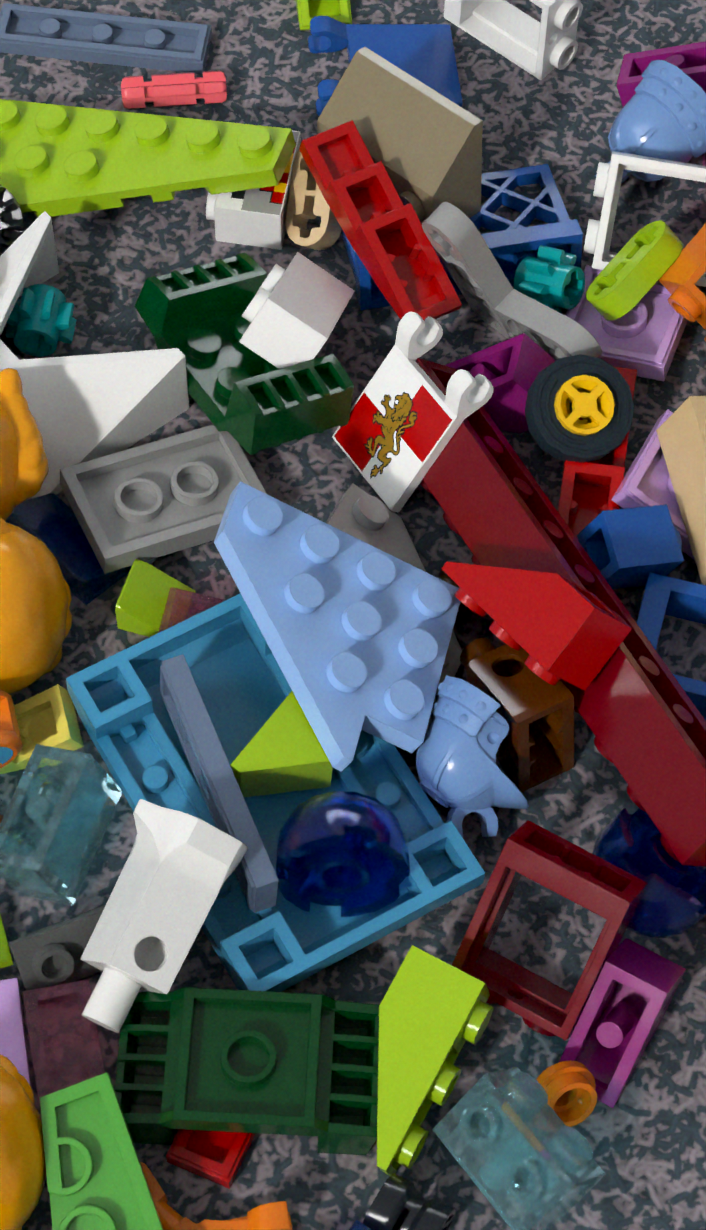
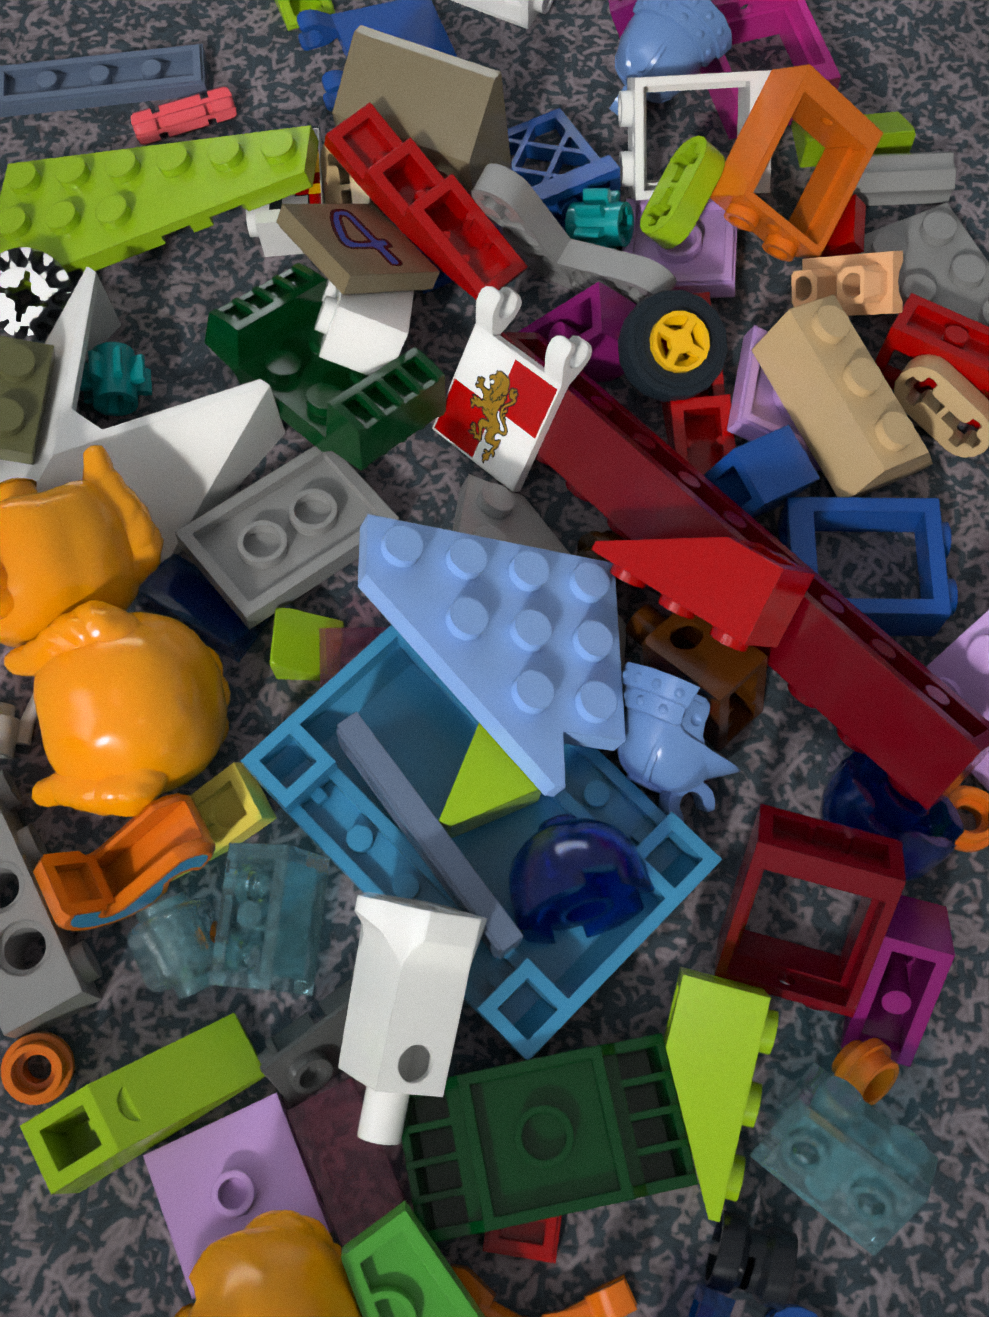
camera: 10 degrees left, 10 degrees up
(304, 251) = (357, 248): none -> dark tan tile

